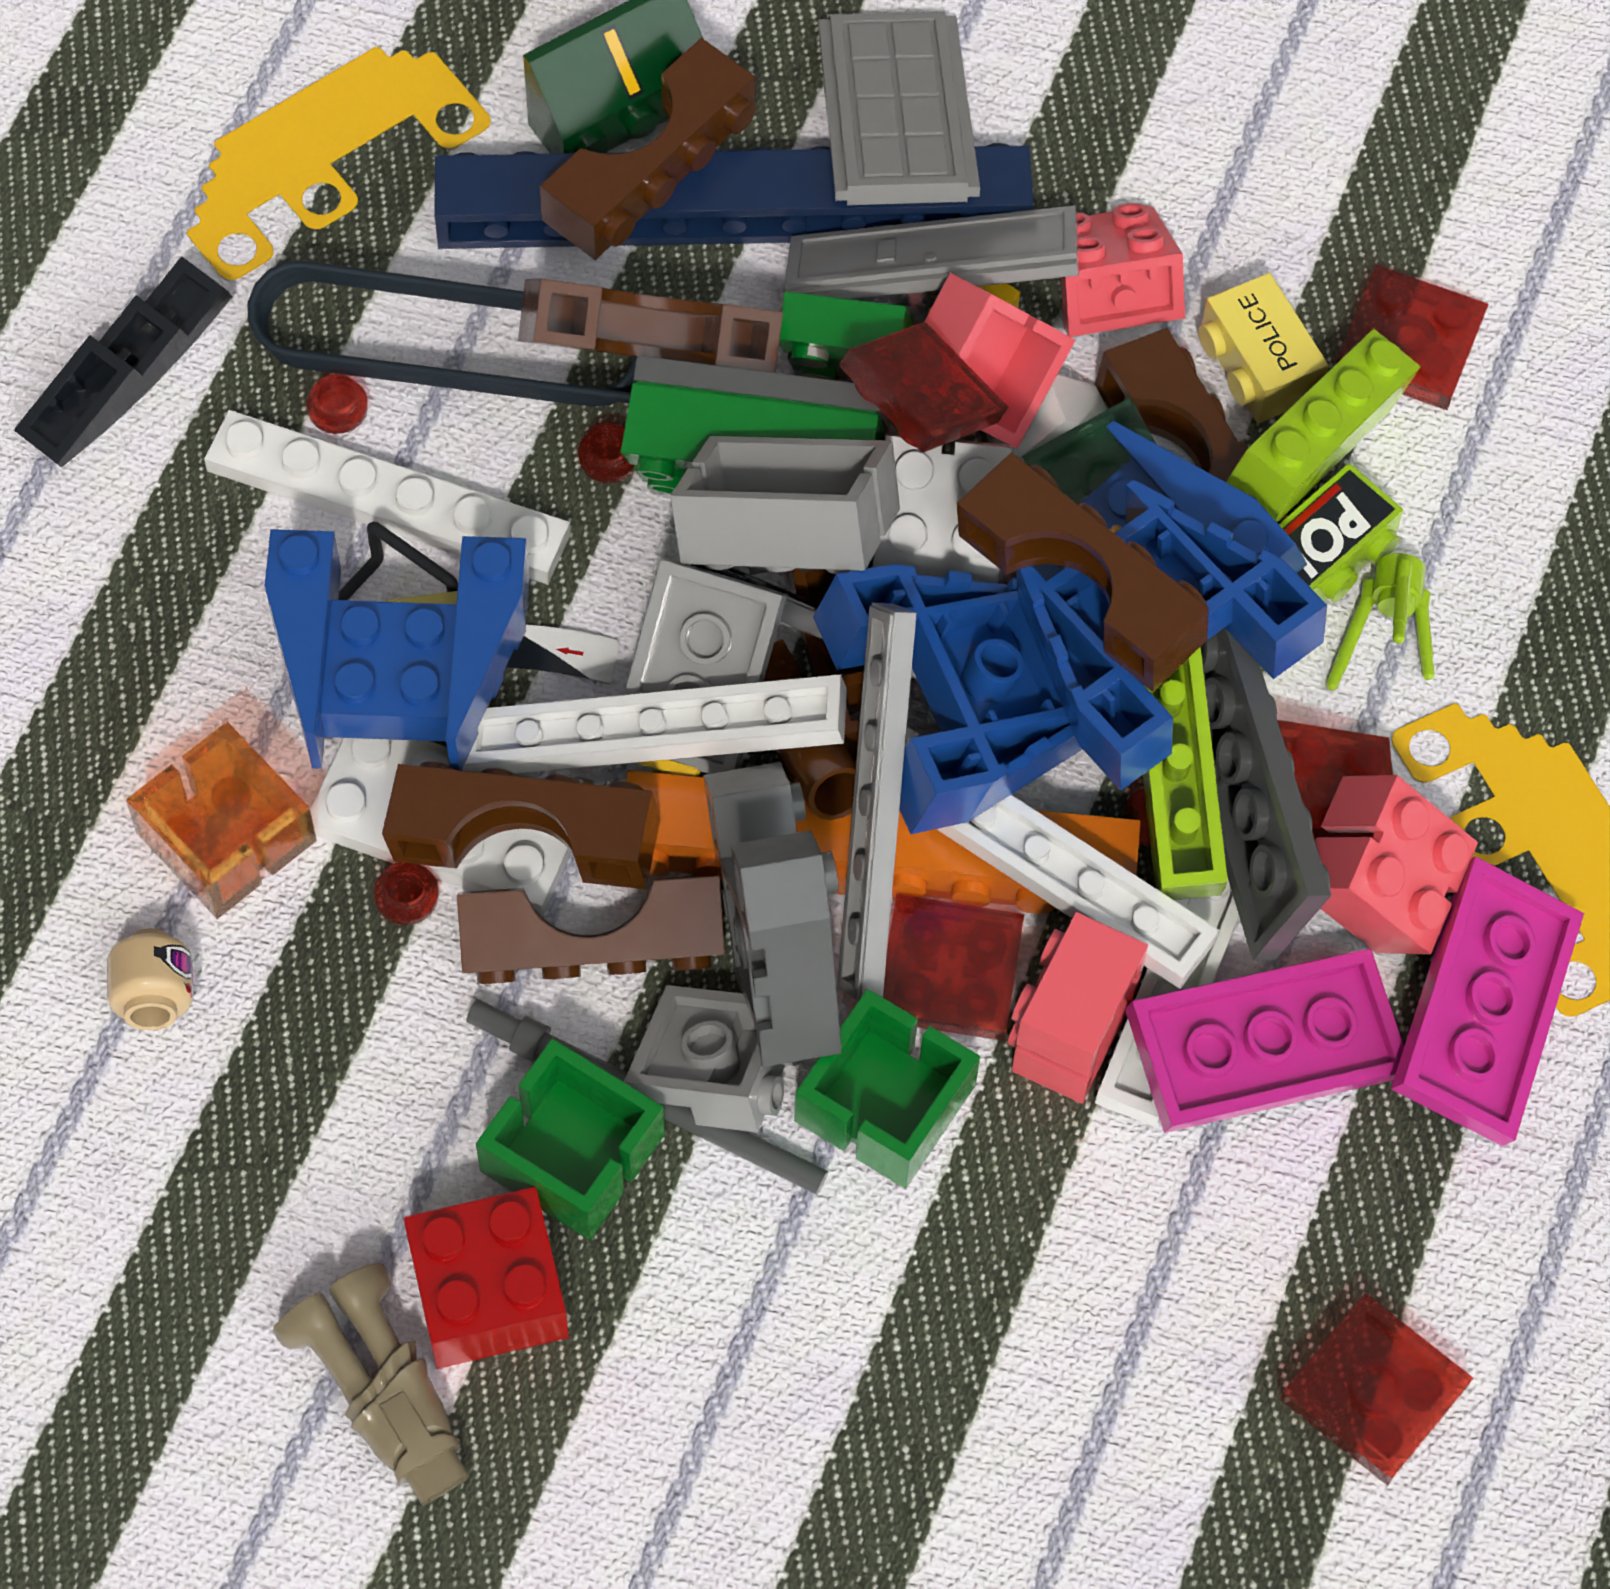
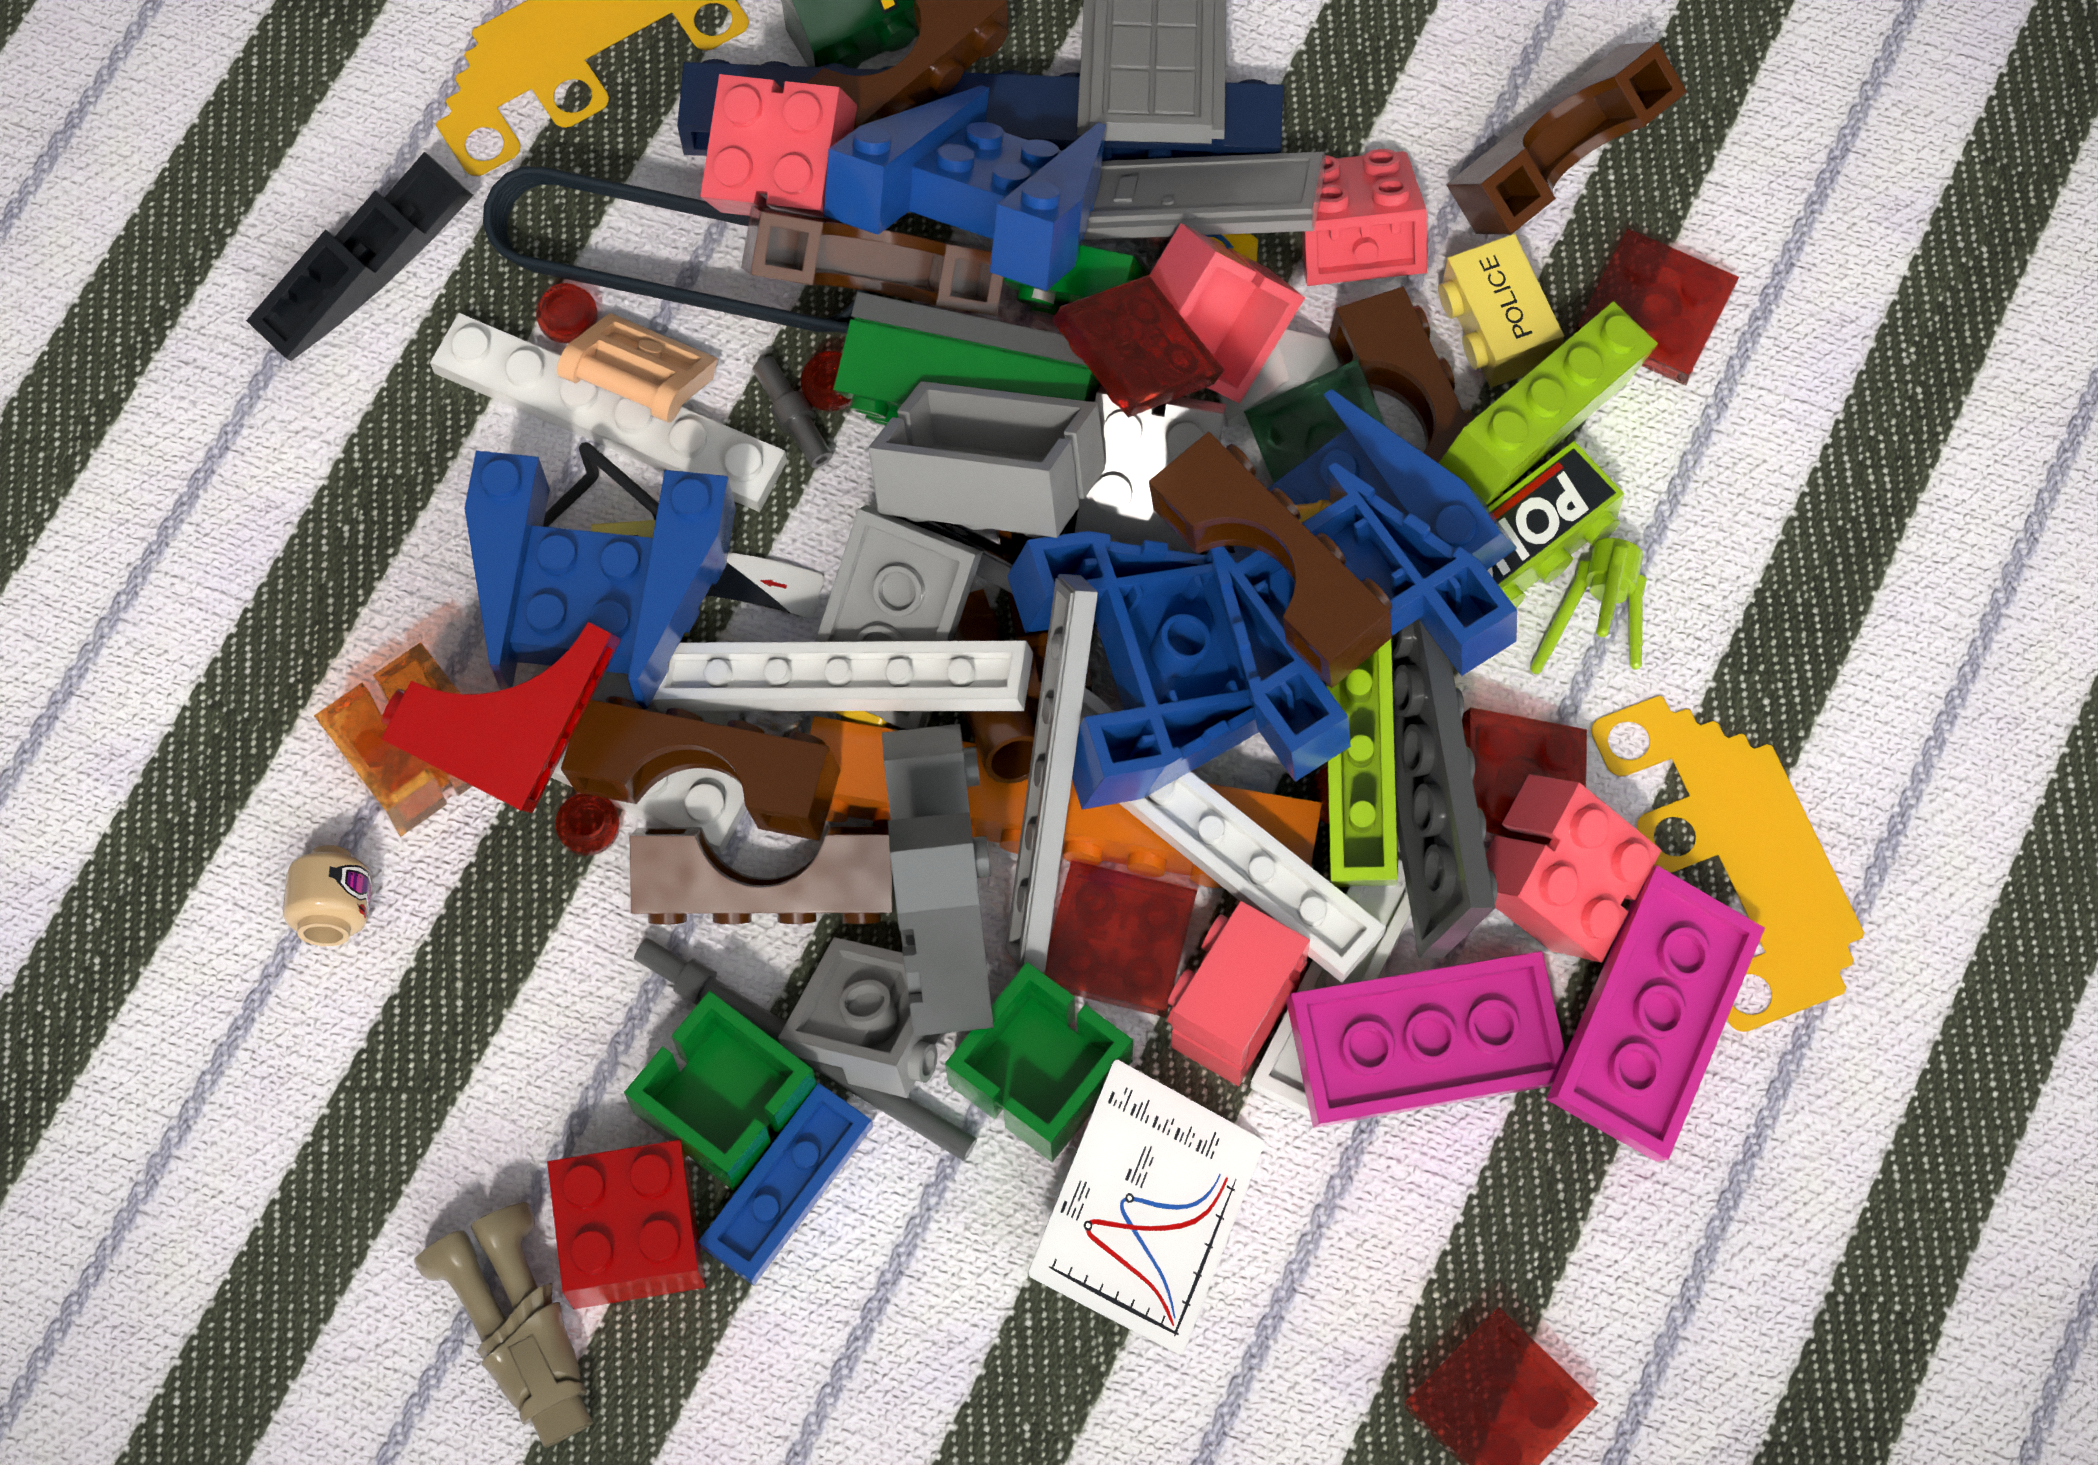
camera: 10 degrees right, 5 degrees up
(324, 803) = (506, 737): none -> red arch
(415, 447) = (637, 365): none -> light nougat plate
(545, 220) = (773, 144): none -> coral piece
(572, 485) = (792, 412): none -> flat silver bar
(641, 1228) = (786, 1184): none -> blue plate
(738, 241) = (972, 176): none -> blue wedge
(1007, 1222) = (1146, 1208): none -> white sticker
(1343, 146) = (1605, 102): none -> reddish brown arch

